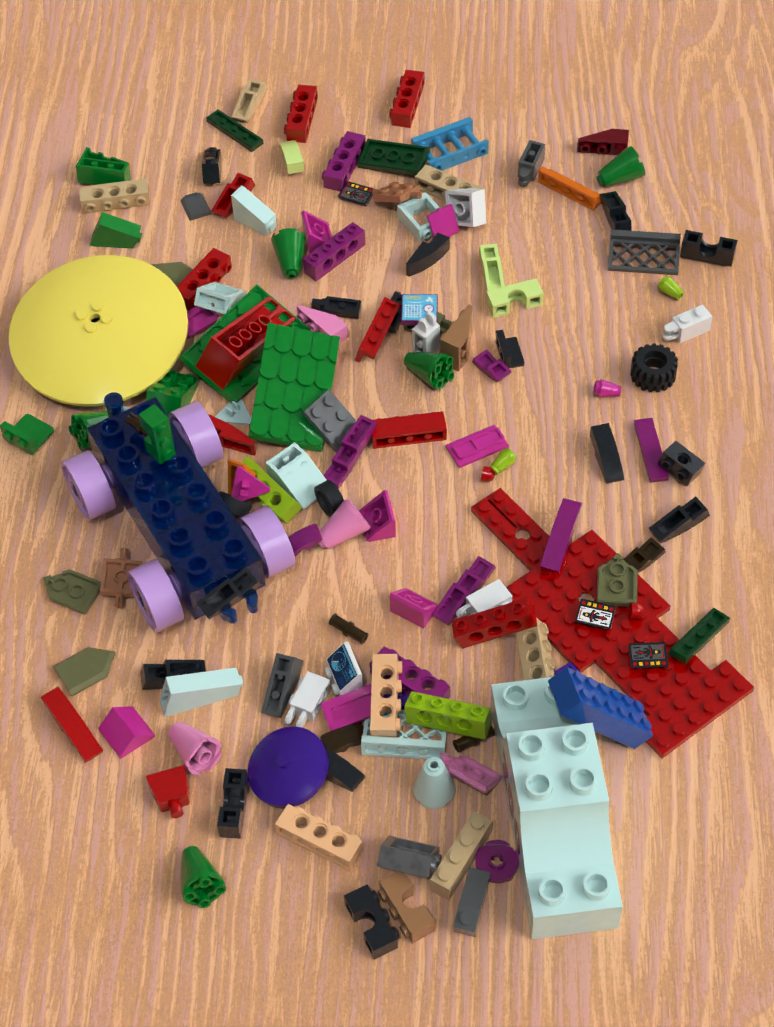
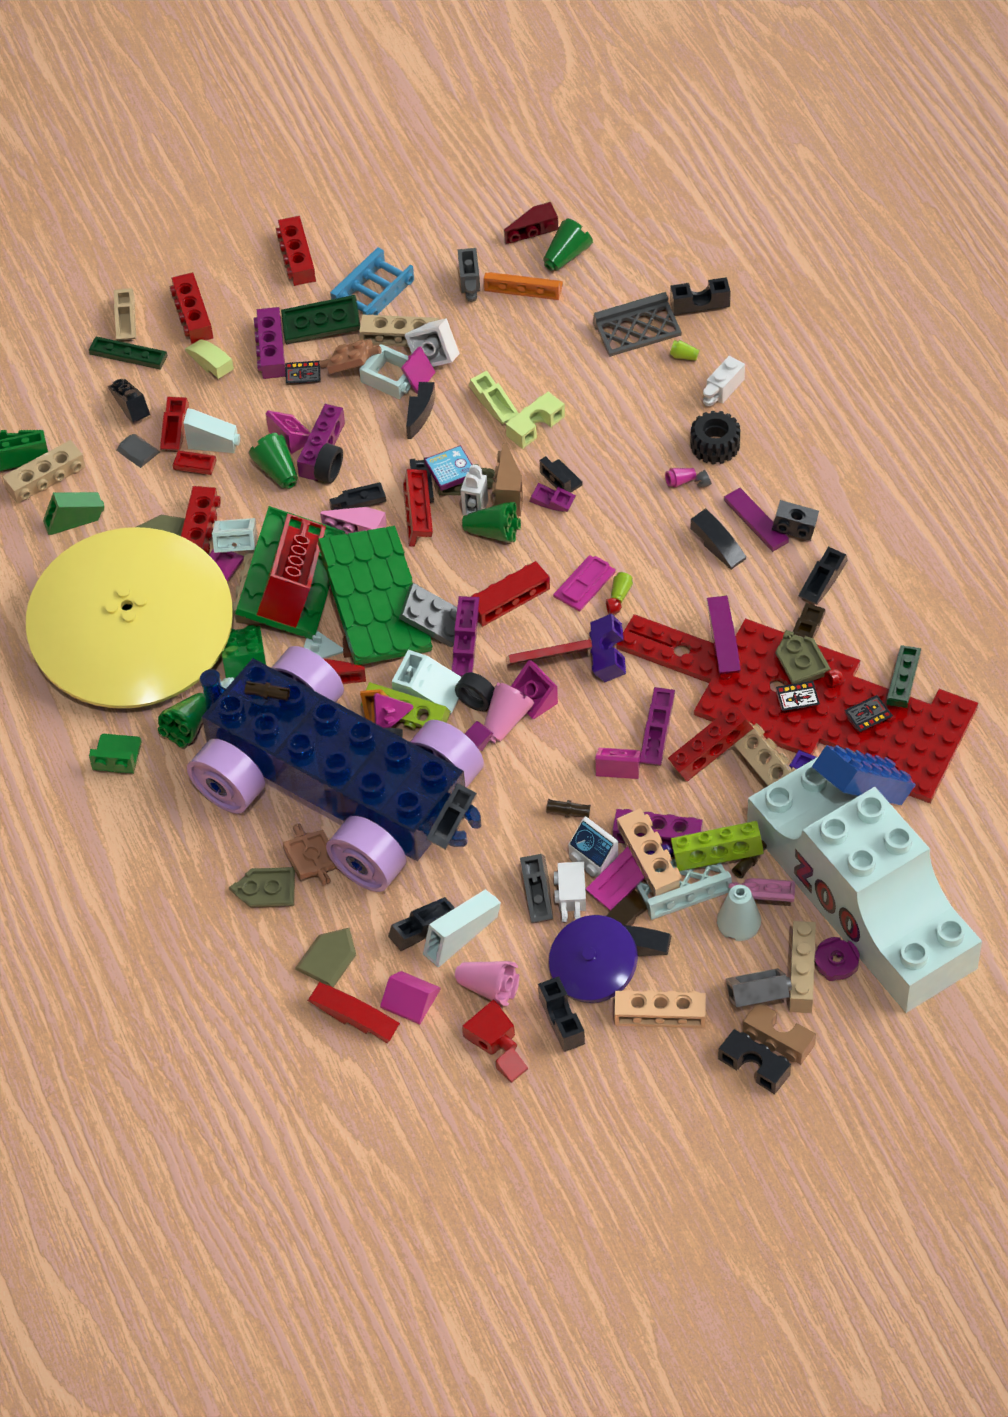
camera: 25 degrees left, 0 degrees up
(160, 440) = (299, 695): green arch -> none
(168, 828) = (511, 1065): none -> slope
(199, 878) = (572, 1093): green cone -> none
(230, 231) = (194, 462): none -> red plate
(325, 262) = (328, 463): none -> black tyre
(407, 490) = (548, 652): none -> red tile
(464, 495) = (607, 661): none -> dark purple arch
(471, 902) = (837, 1003): dark grey slope -> none
(486, 598) = (686, 725): white hinge -> none
(615, 211) = (584, 293): black slope -> none
(626, 398) = (705, 480): none -> dark grey hinge

